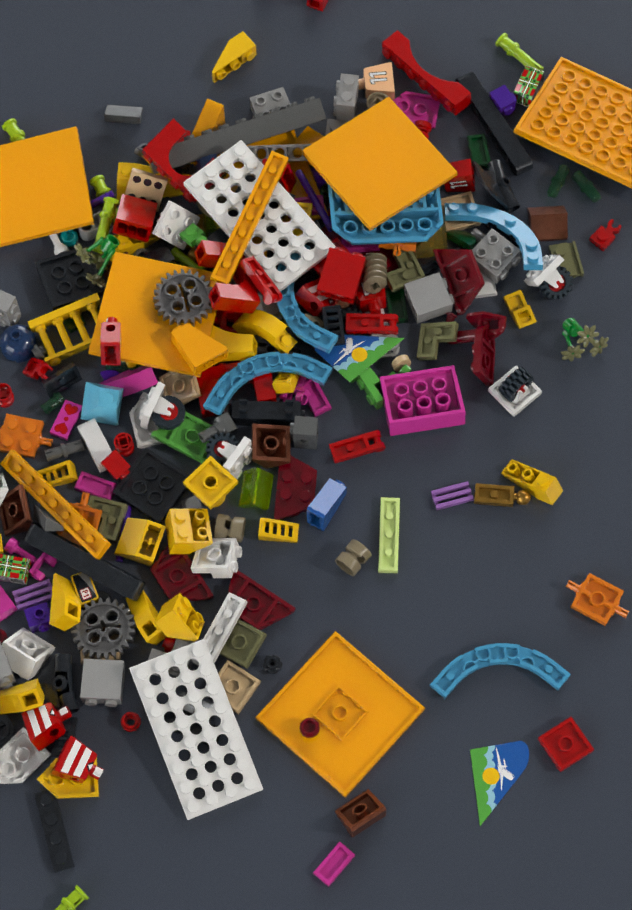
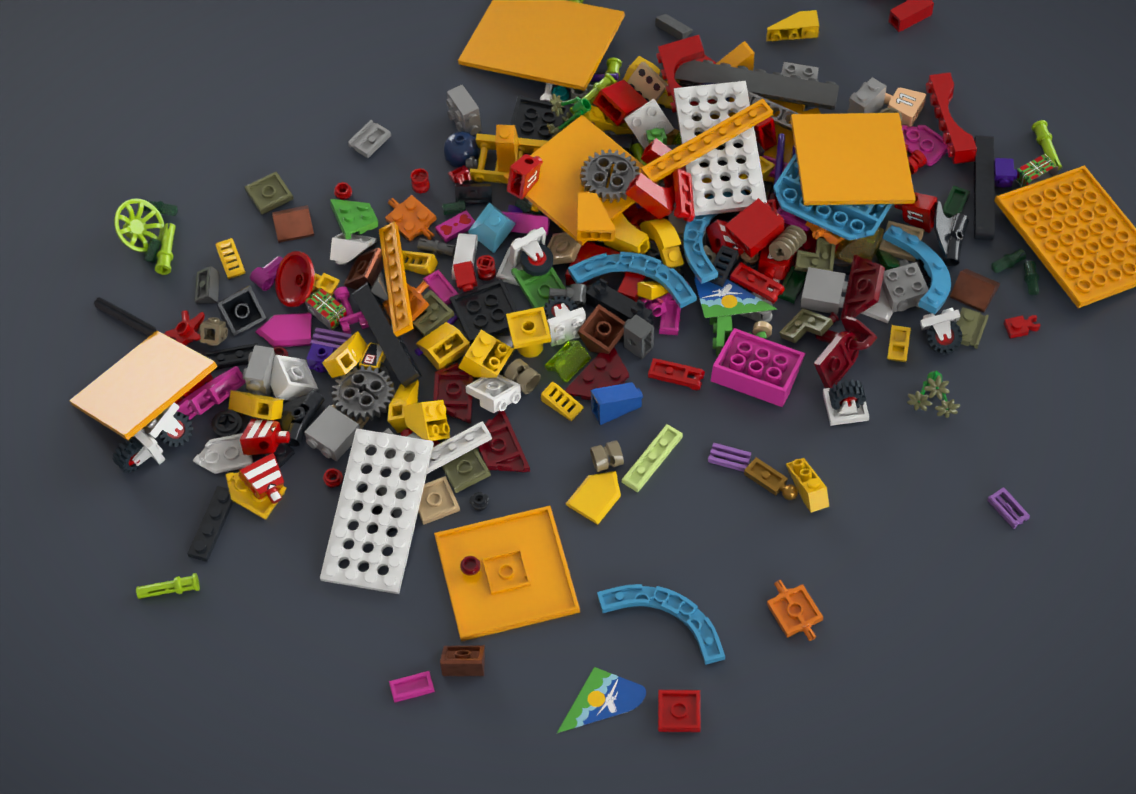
camera: 35 degrees right, 10 degrees down
(70, 323) = (506, 146): none -> light orange slope
(366, 598) = (596, 496): none -> yellow tile

